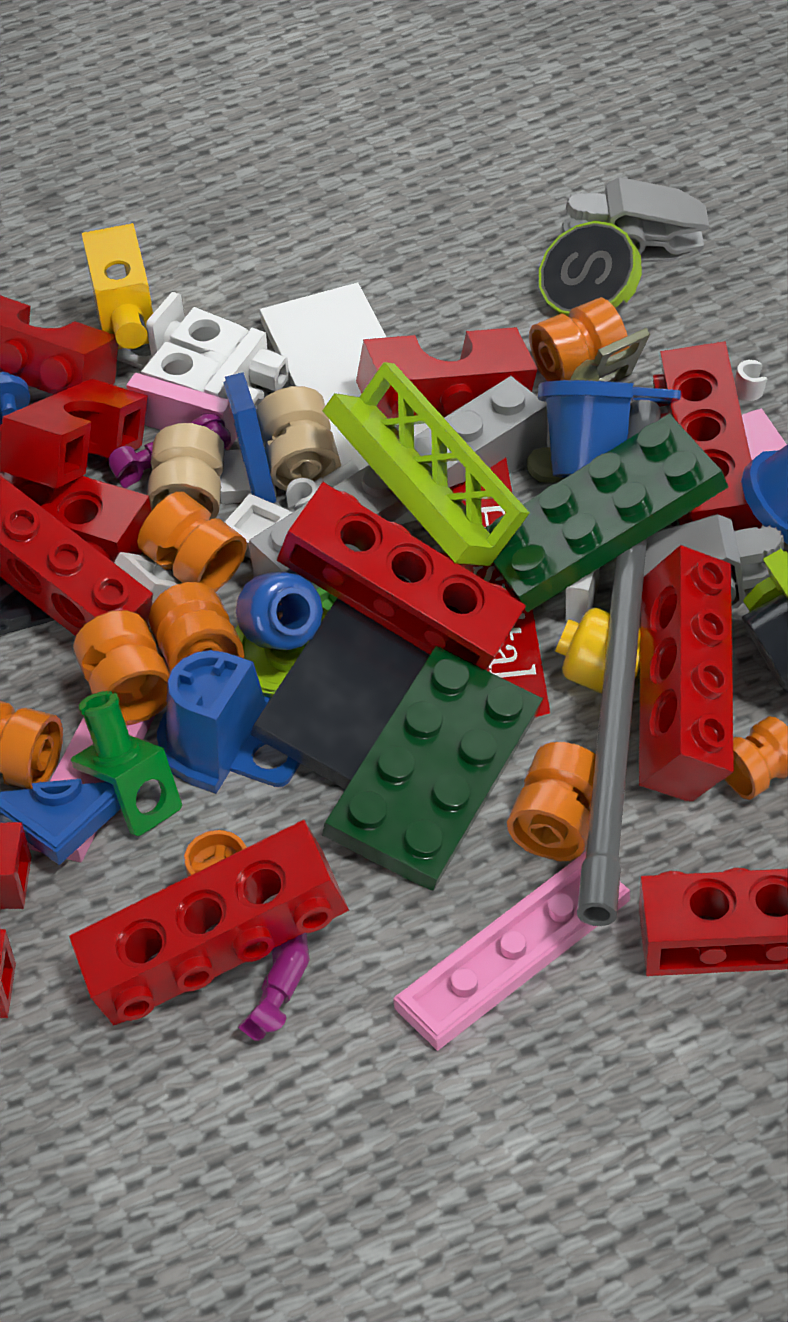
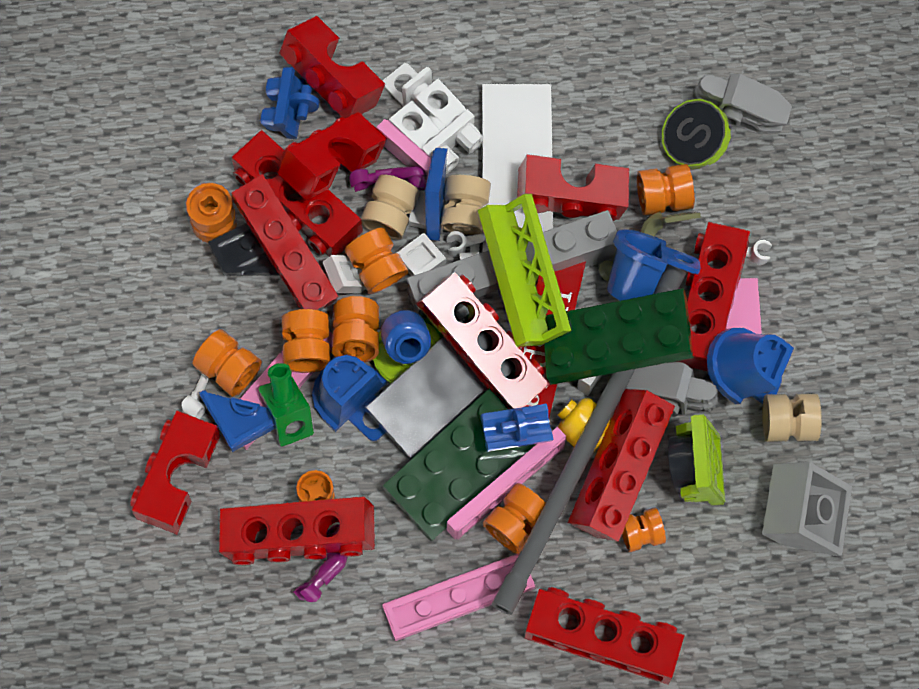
camera: 15 degrees right, 20 degrees up
(121, 303) = (397, 59): yellow torso -> none
(492, 803) = (498, 489): none -> bright pink tile
(502, 667) = (516, 427): none -> blue hips

